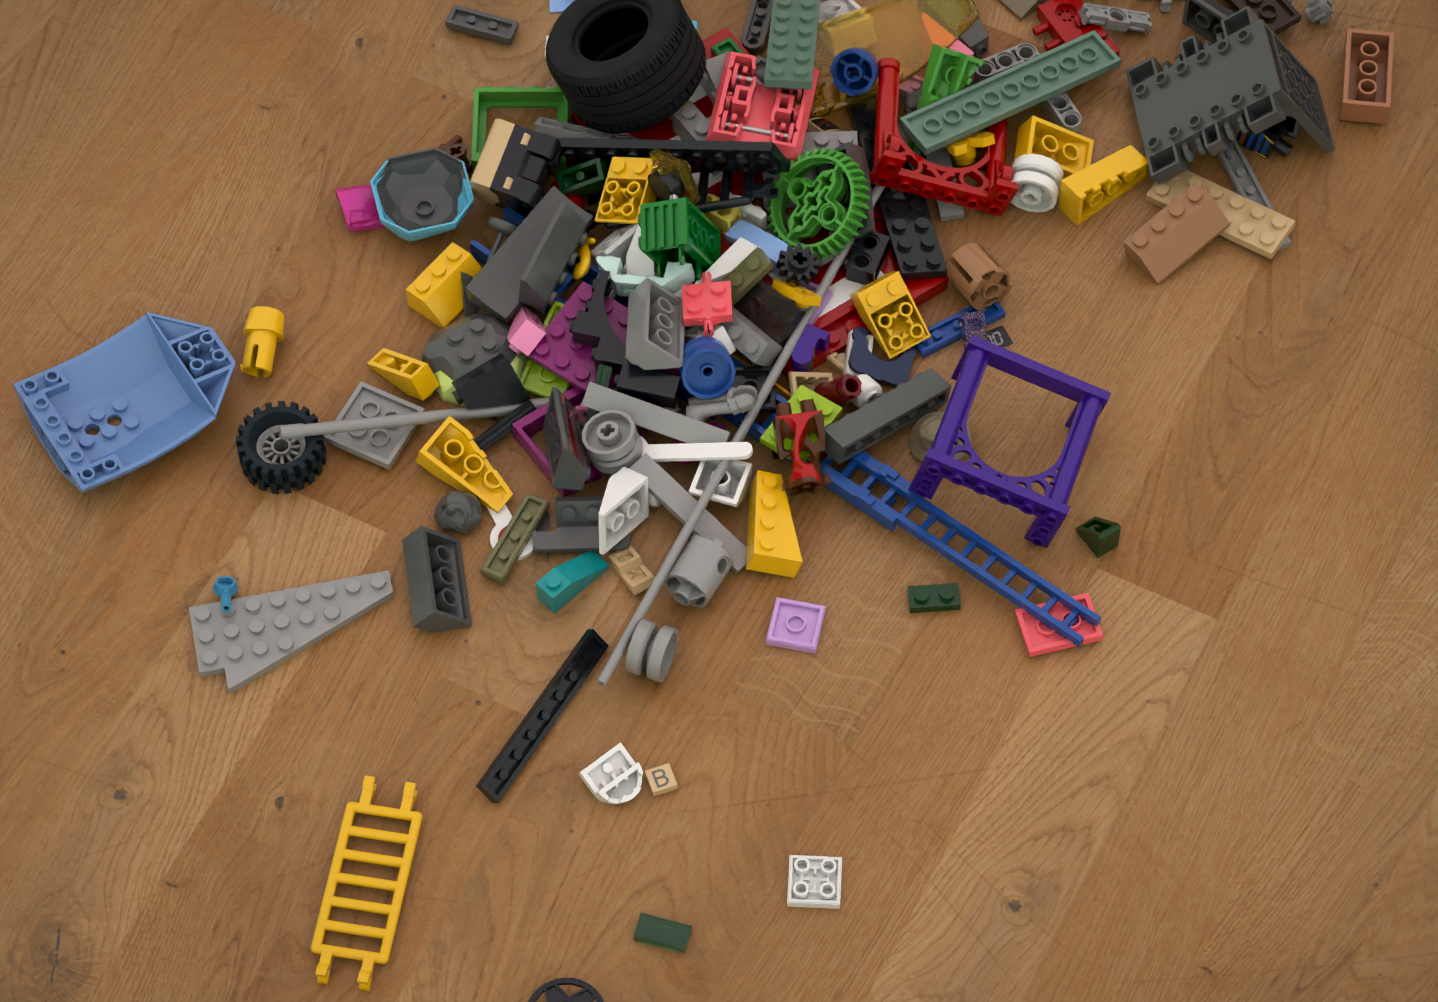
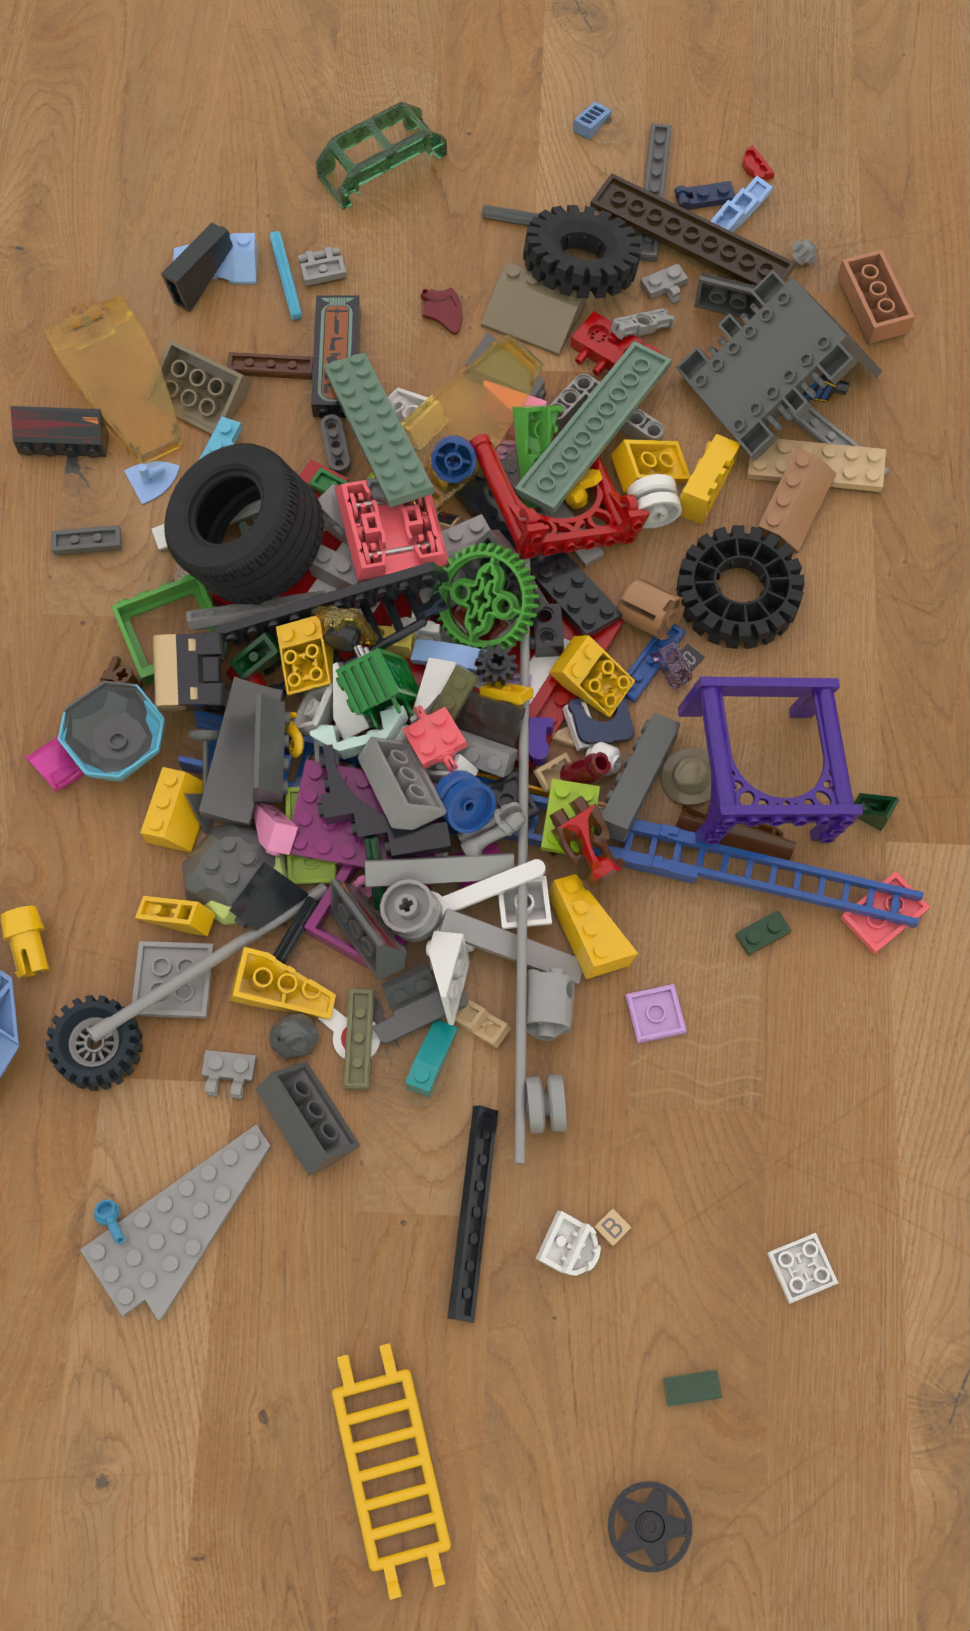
camera: 25 degrees left, 10 degrees up
(388, 515) = (228, 1066): none -> light grey plate
(962, 506) = (758, 839): none -> reddish brown wedge
(1074, 324) = (735, 620): none -> black tyre

